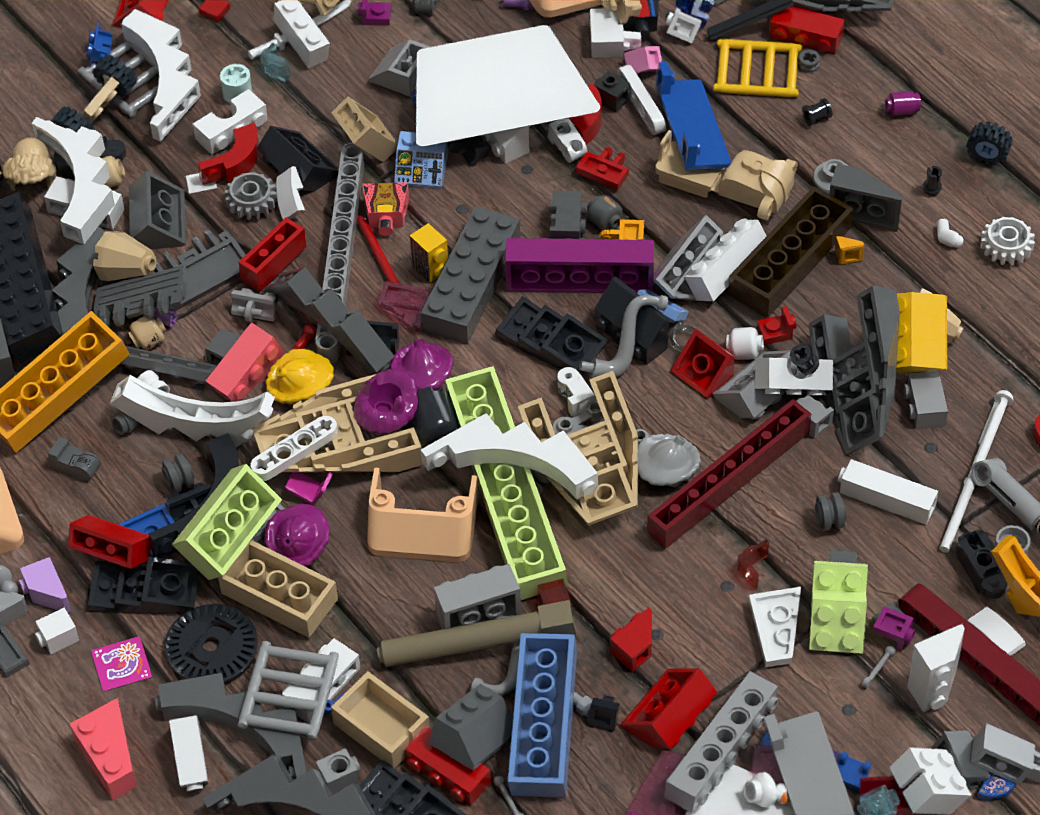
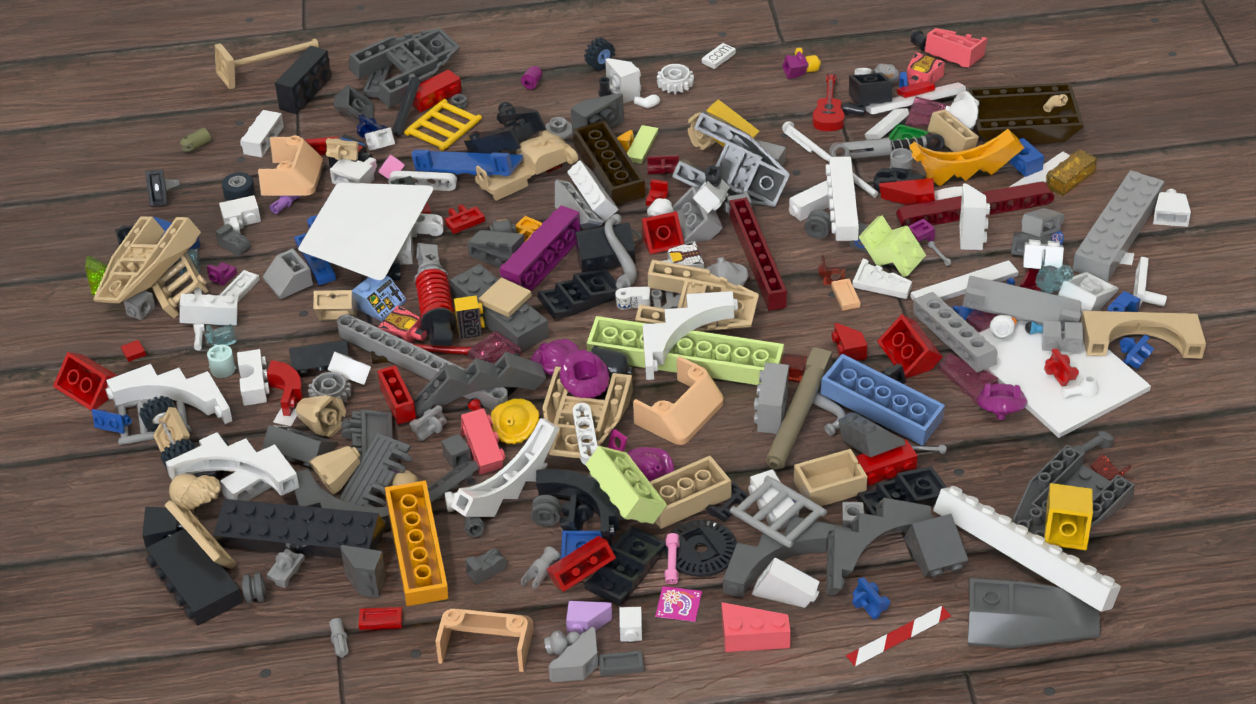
camera: 60 degrees left, 10 degrees down
(98, 509) = (539, 567): none -> light grey piece
(152, 635) = (672, 542): none -> bright pink bar
(203, 208) = (322, 414): none -> tan cone
(281, 637) = (723, 512): none -> black piece
(359, 39) = (241, 285): none -> white tile
(447, 203) = (434, 296): none -> piece
(469, 268) = (505, 297): none -> tan tile
(671, 408) = (686, 255): none -> torso
(730, 599) = (845, 294): none -> light nougat tile
(766, 136) = (519, 125): none -> black wedge
(832, 302) = (662, 163): none -> dark red hips
(837, 718) = (958, 285): none -> white tile
(862, 268) = (642, 144): none -> yellowish green tile
(878, 512) = (843, 200): none -> white brick
(952, 191) = (623, 78): none -> white slope
(967, 591) = (908, 191): none -> red slope

